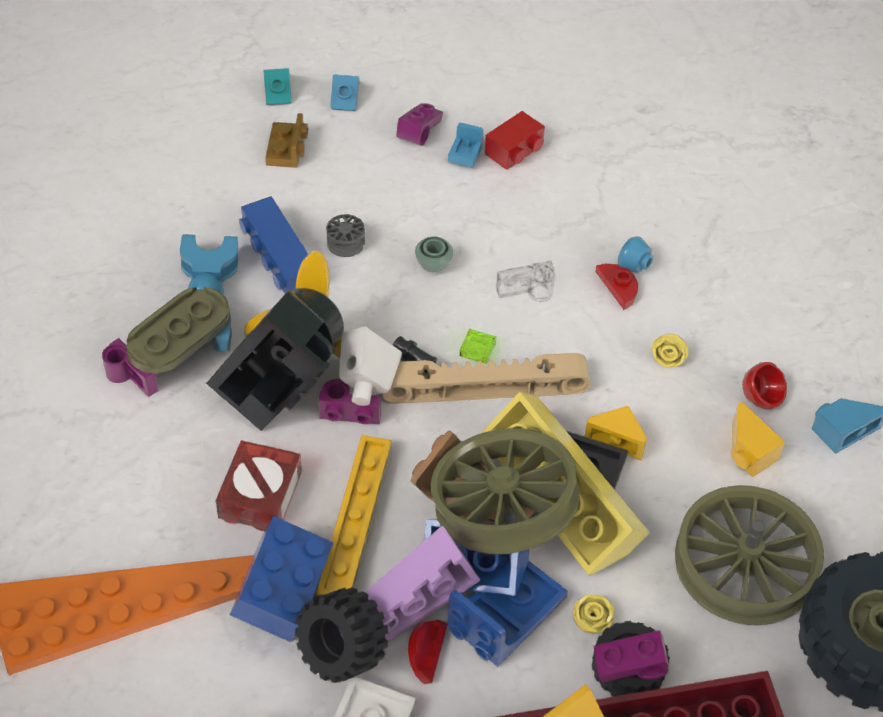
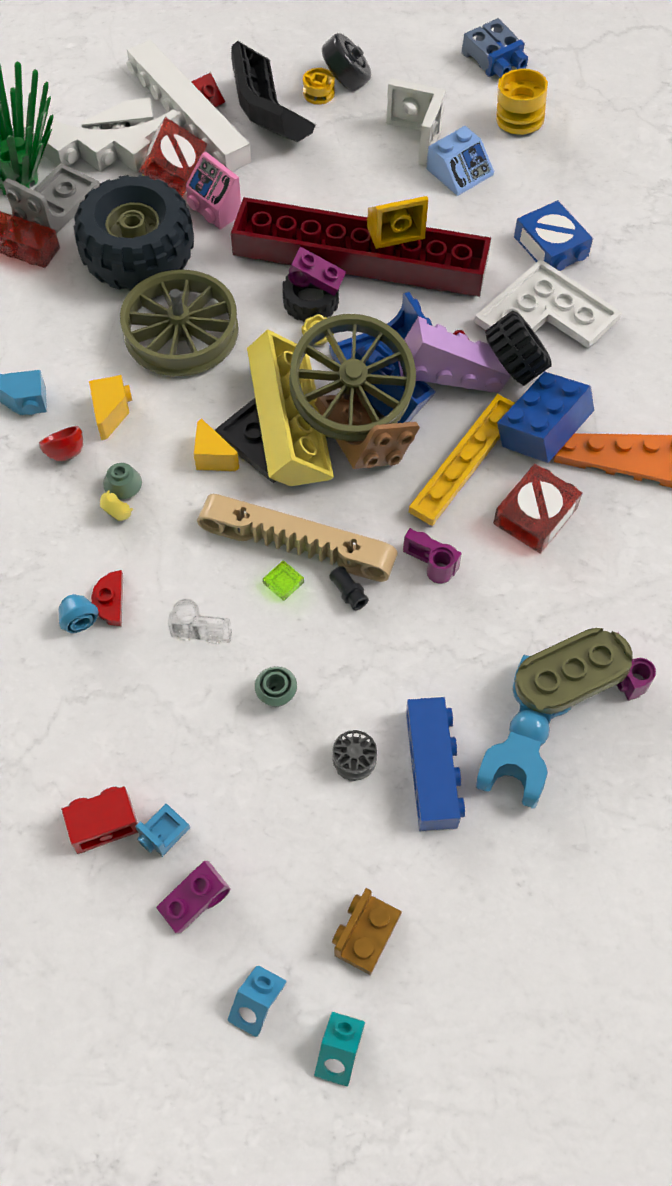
camera: 155 degrees left, 10 degrees up
(283, 348) = (481, 587): black brick -> none
(367, 364) = (414, 547): white torso -> none
(683, 378) = (122, 481): none -> sand green cone

